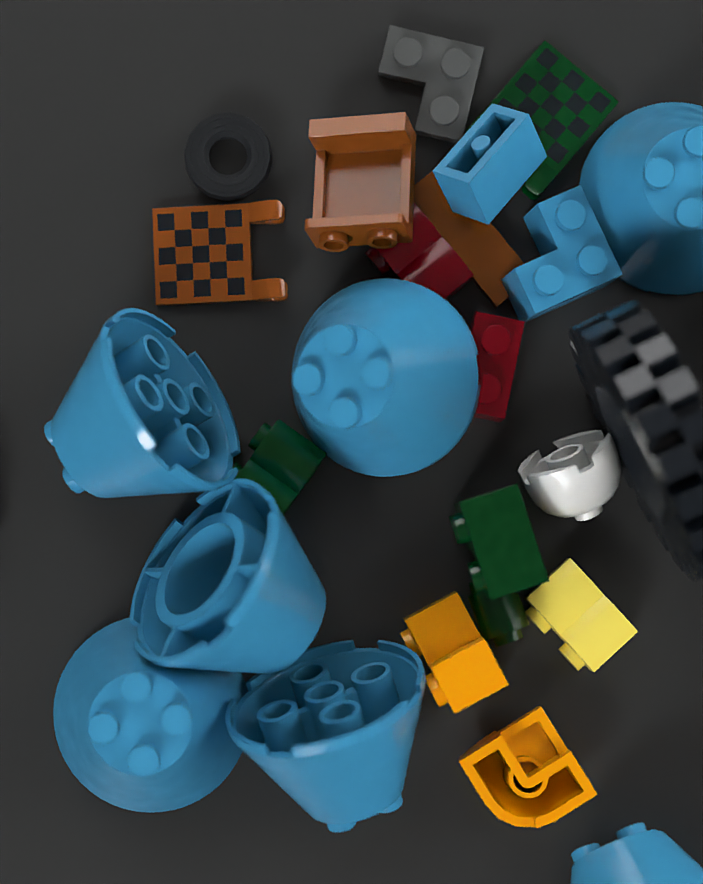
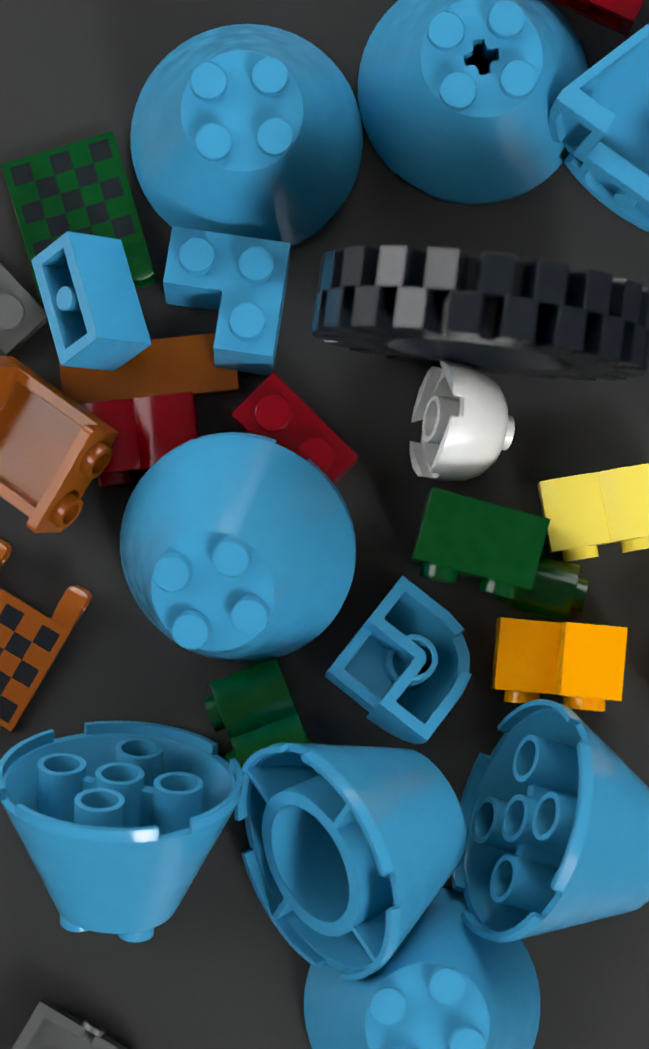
camera: 50 degrees left, 0 degrees up
(381, 546) = (405, 664): none -> dark azure brick

